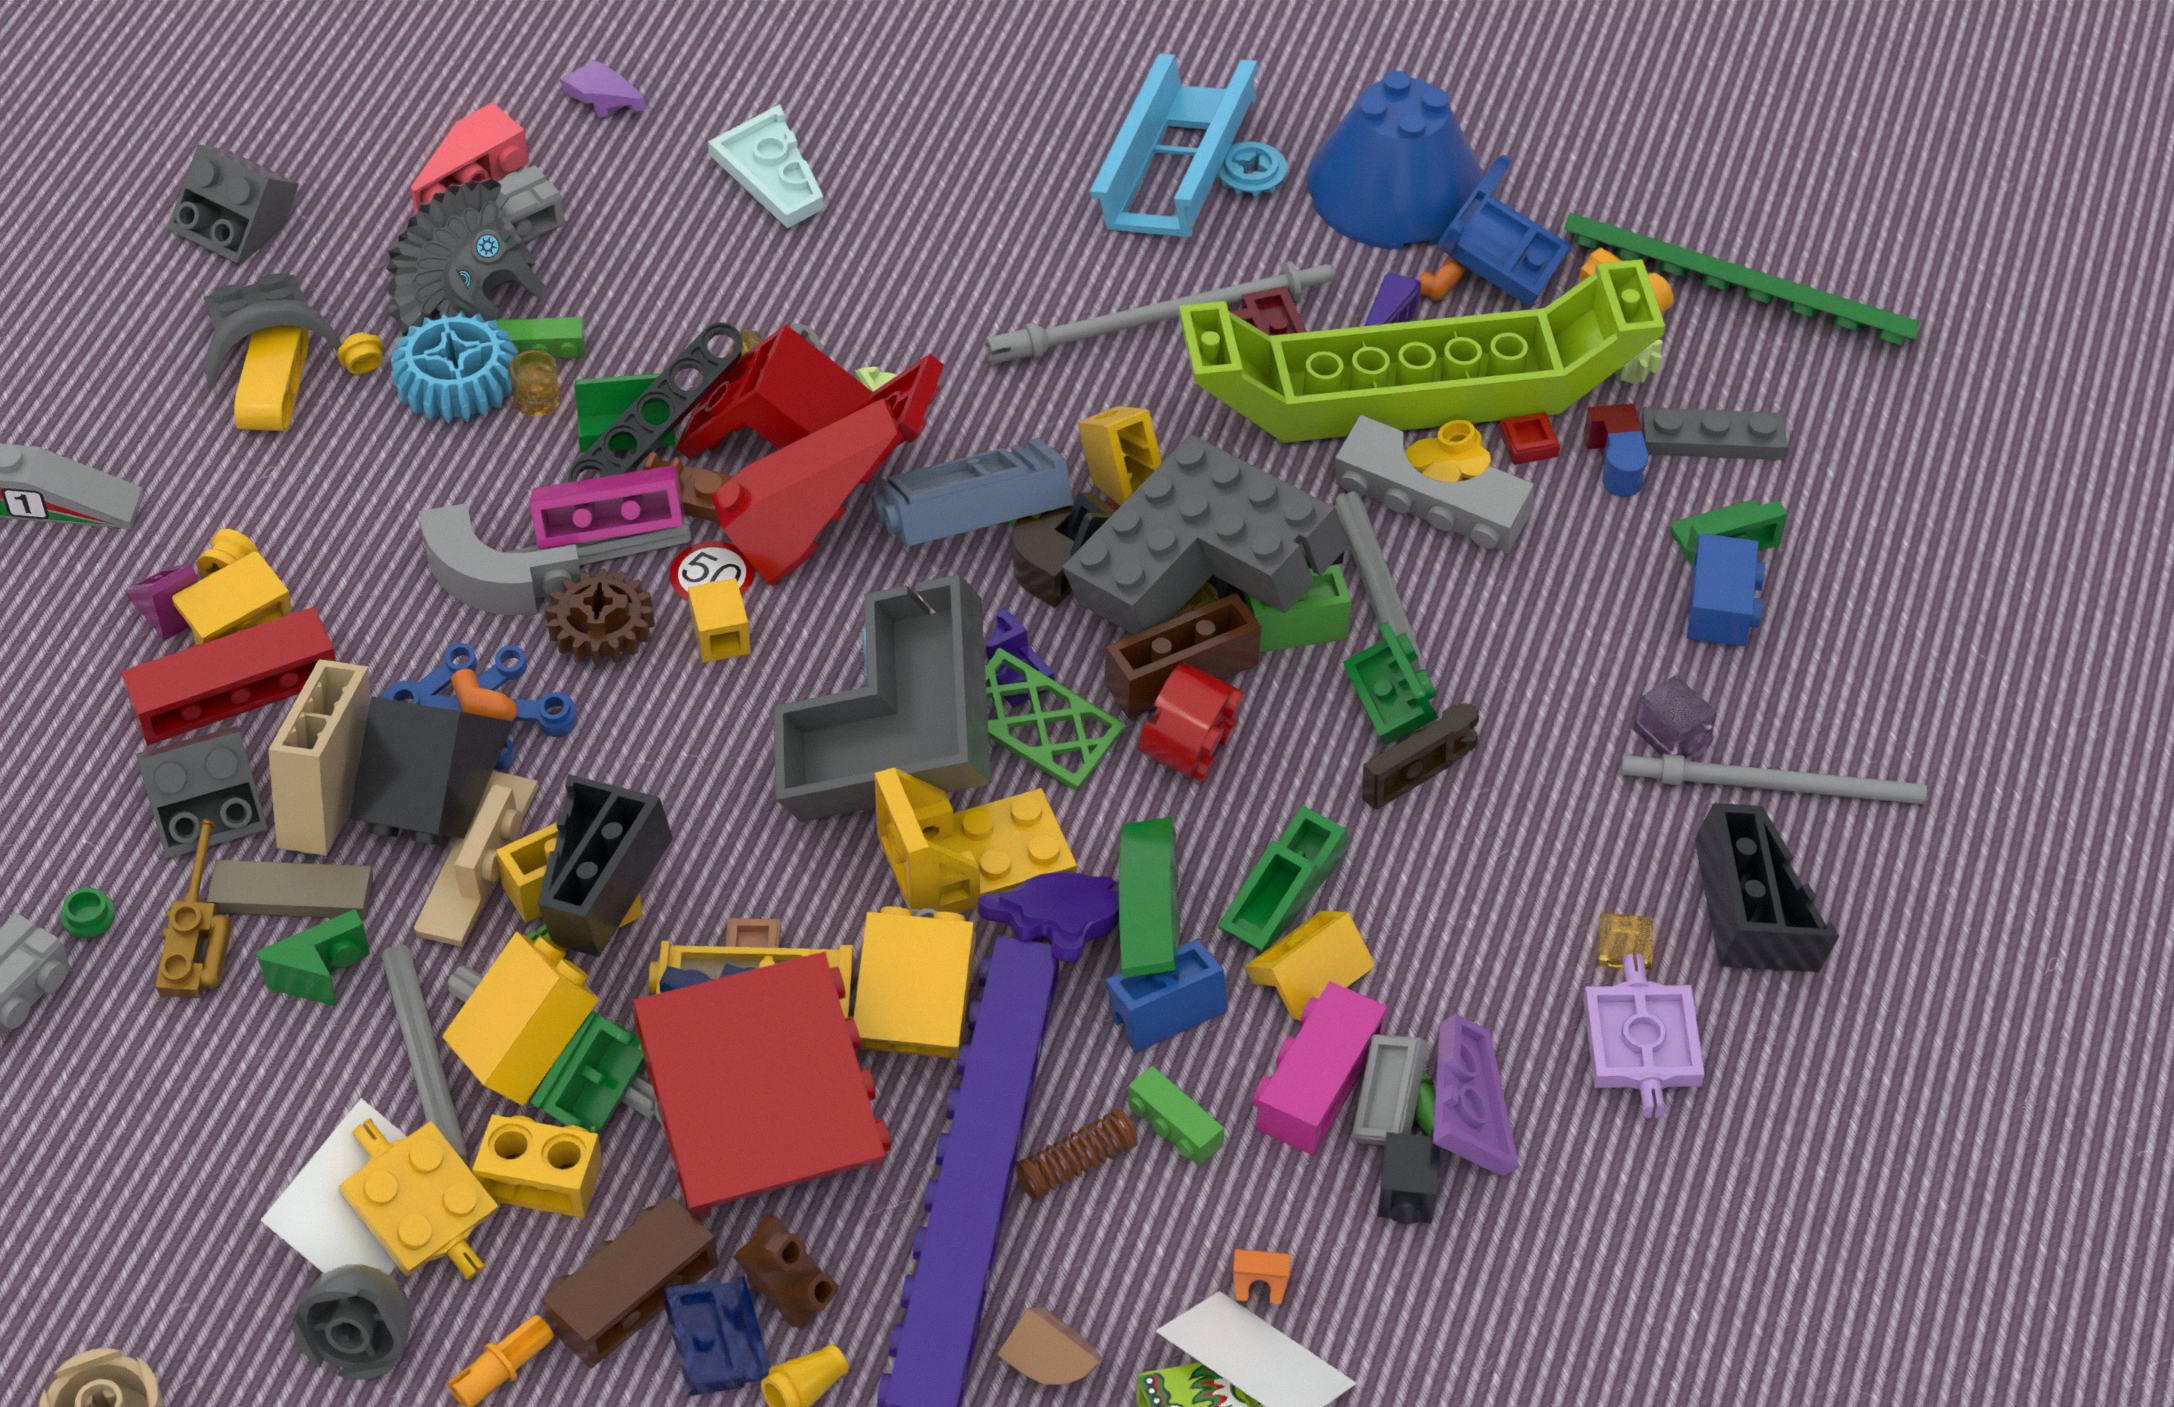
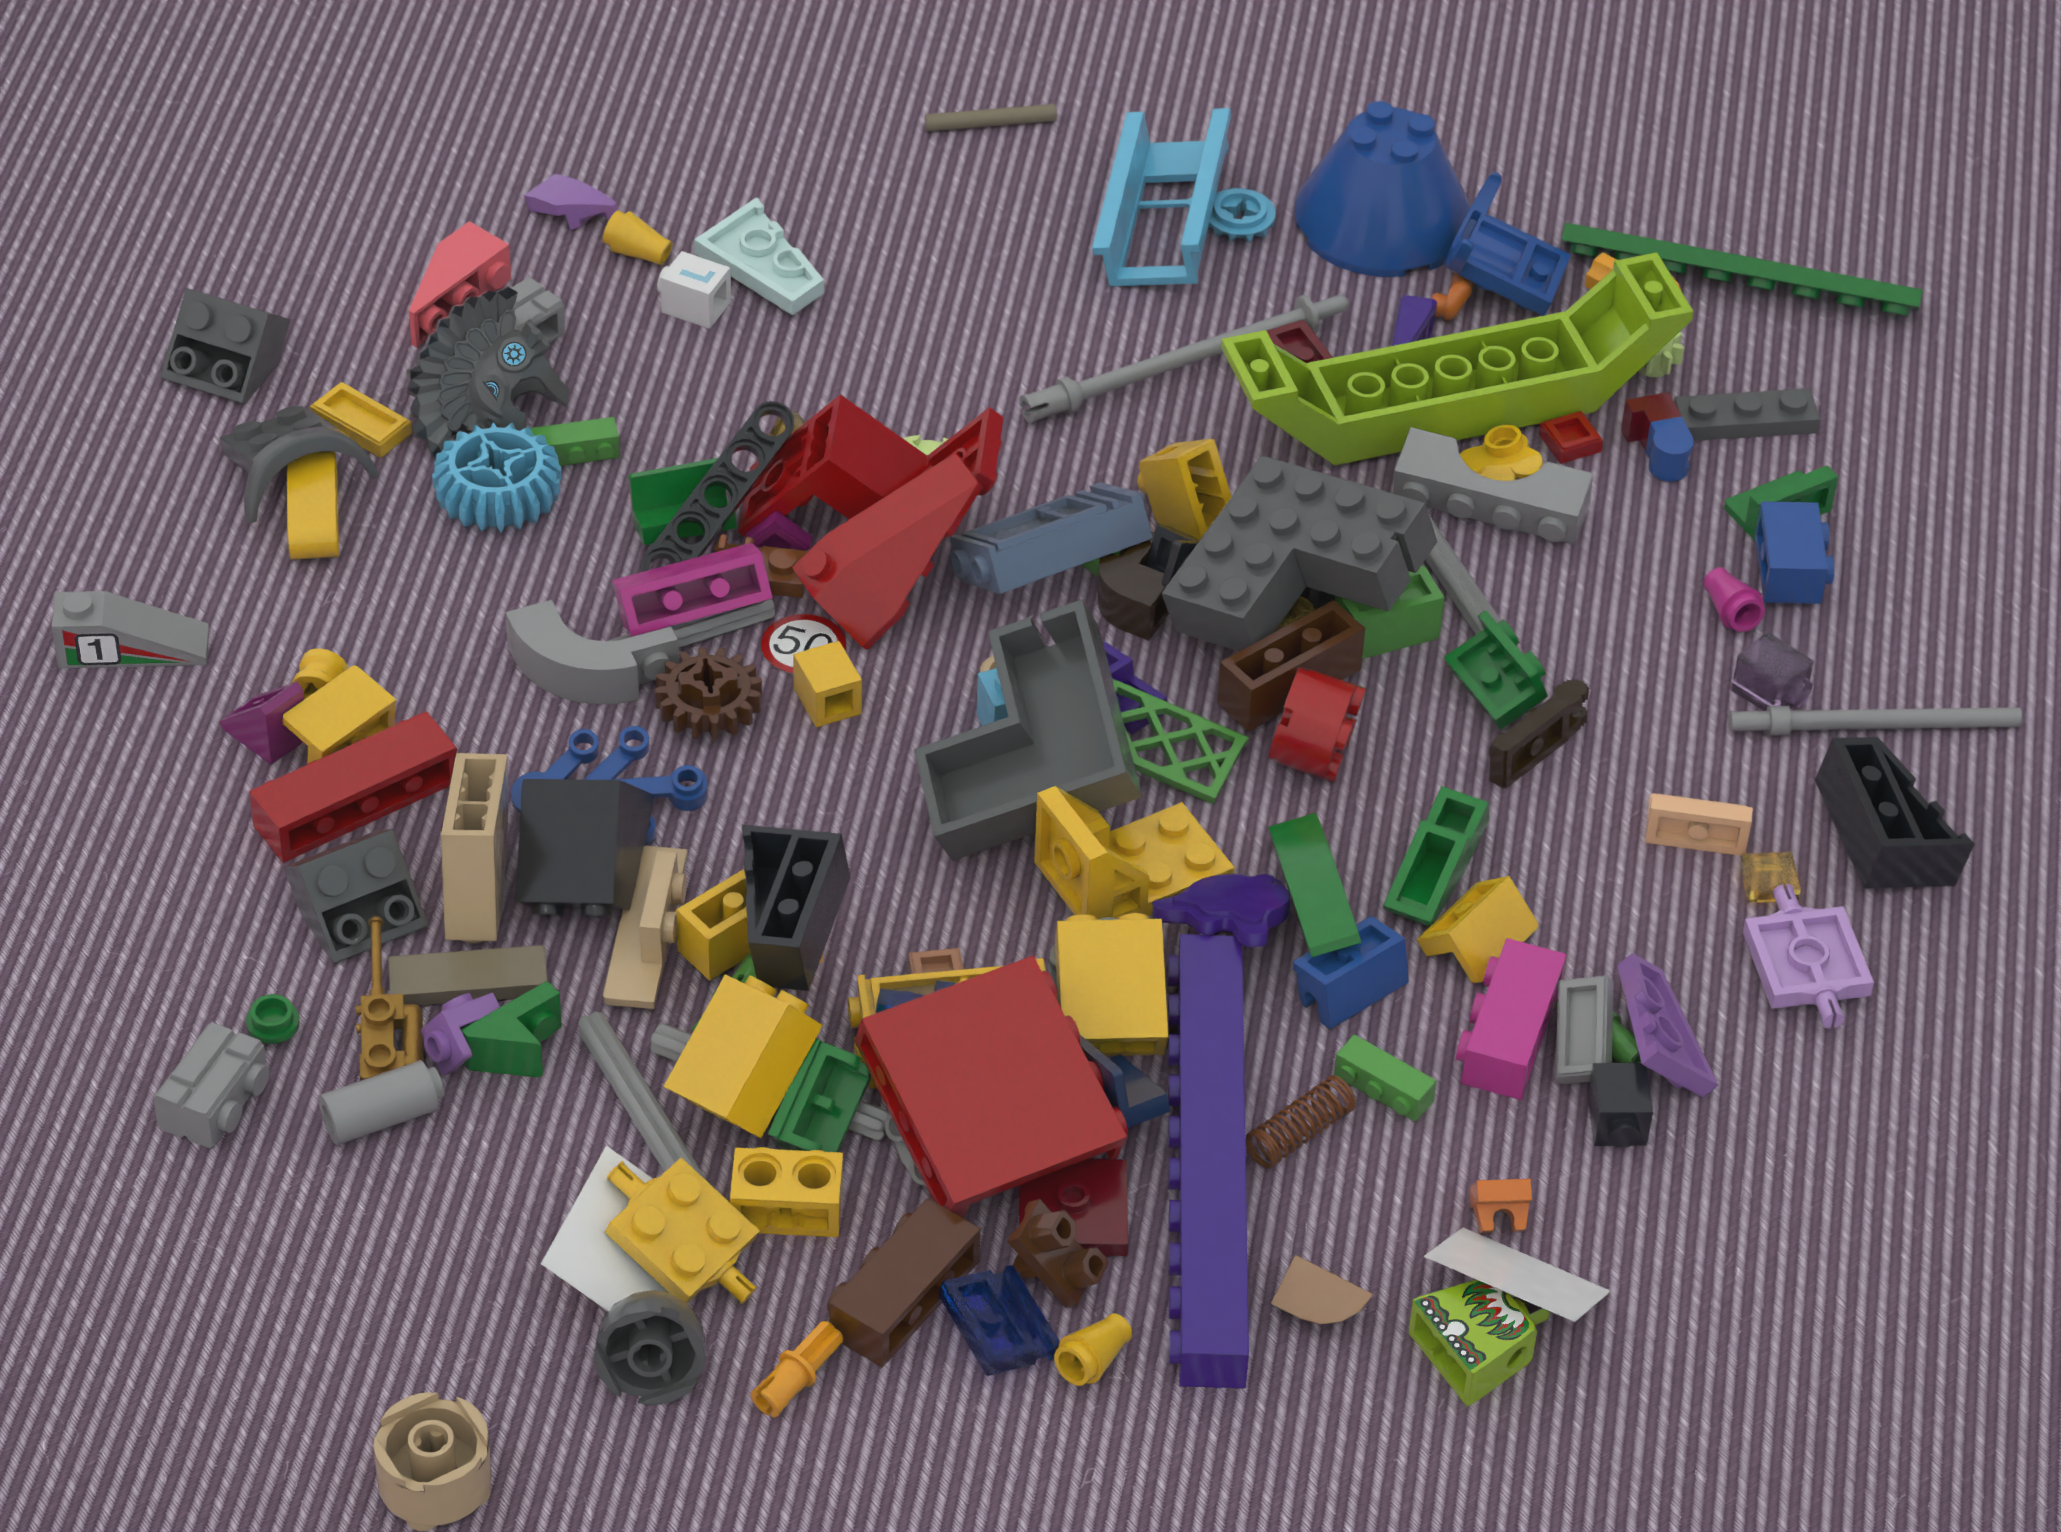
camera: 10 degrees left, 5 degrees down
(165, 1015) = (380, 1101): none -> light grey brick
(240, 951) = (443, 1034): none -> medium lavender bracket
(344, 292) = (363, 419): none -> yellow tile
(361, 353) = (397, 473): yellow plate -> none
(480, 700) = (598, 768): orange arm -> none
(535, 383) = (582, 483): clear yellow wheel -> none
(652, 133) = (635, 238): none -> yellow cone
(697, 193) = (695, 289): none -> white brick
(712, 455) = (780, 533): none -> magenta tile
(836, 1218) = (1092, 1196): none -> dark red plate
(900, 1095) = (1128, 1087): none -> dark blue panel
(1032, 44) = (990, 117): none -> dark tan bar
(1563, 872) = (1698, 824): none -> light nougat panel
(1654, 634) = (1735, 601): none -> dark pink cone

